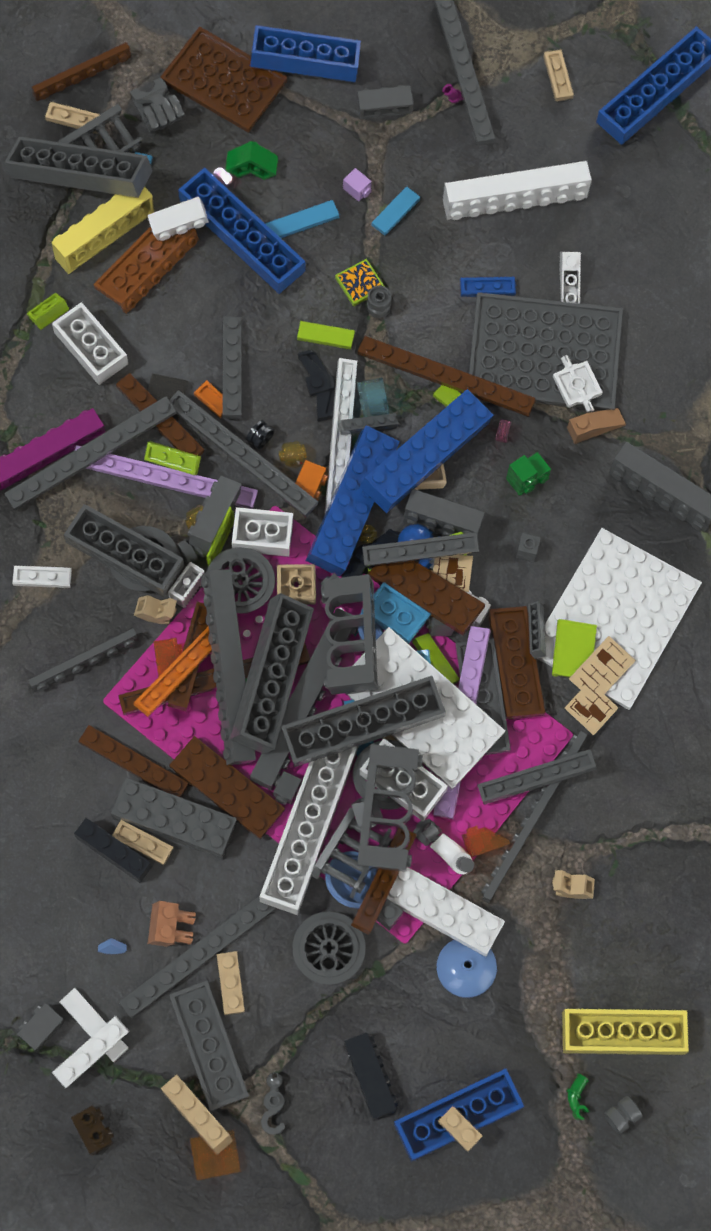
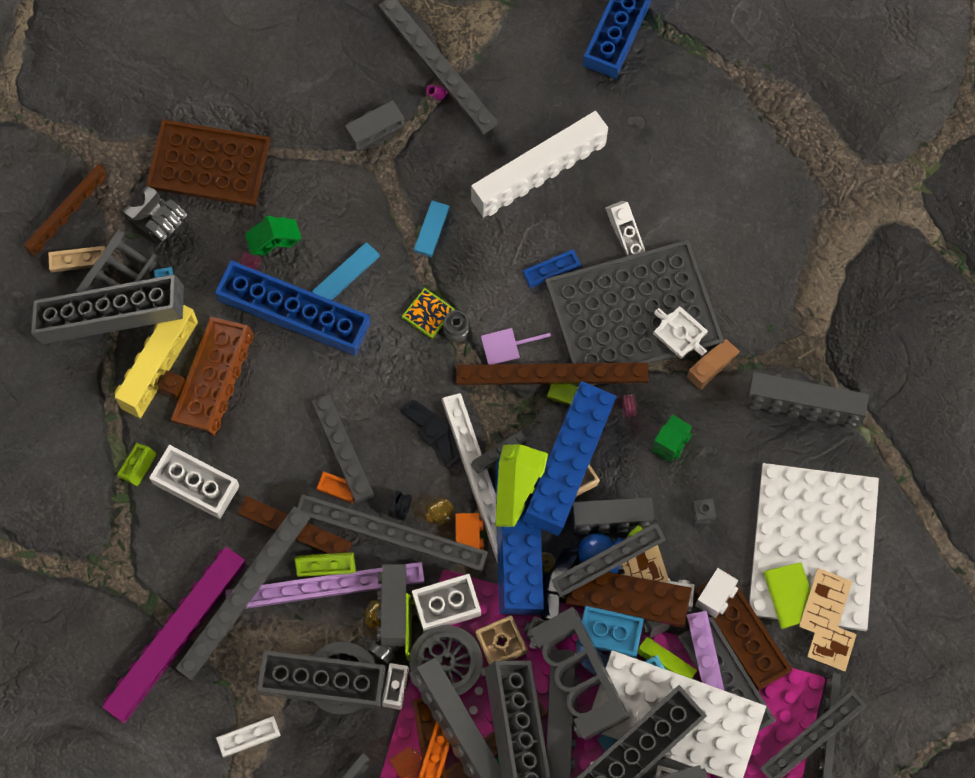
camera: 20 degrees left, 0 degrees up
(106, 254) = (171, 385): none -> reddish brown brick
(155, 610) = (375, 724): tan brick -> none
(178, 219) = (228, 323): white brick -> none
(305, 53) = (278, 107): blue brick -> none
(325, 335) = (418, 379): lime tile -> none
(357, 185) = (384, 218): lavender brick -> none
(372, 443) = (517, 475): none -> lime wedge
(373, 397) = (494, 423): clear light blue brick -> none
(413, 336) = (502, 345): none -> lavender piece
(507, 619) = (716, 593): none -> white brick
(536, 630) = (748, 590): dark grey piece -> none
(558, 75) = (527, 34): tan plate -> none

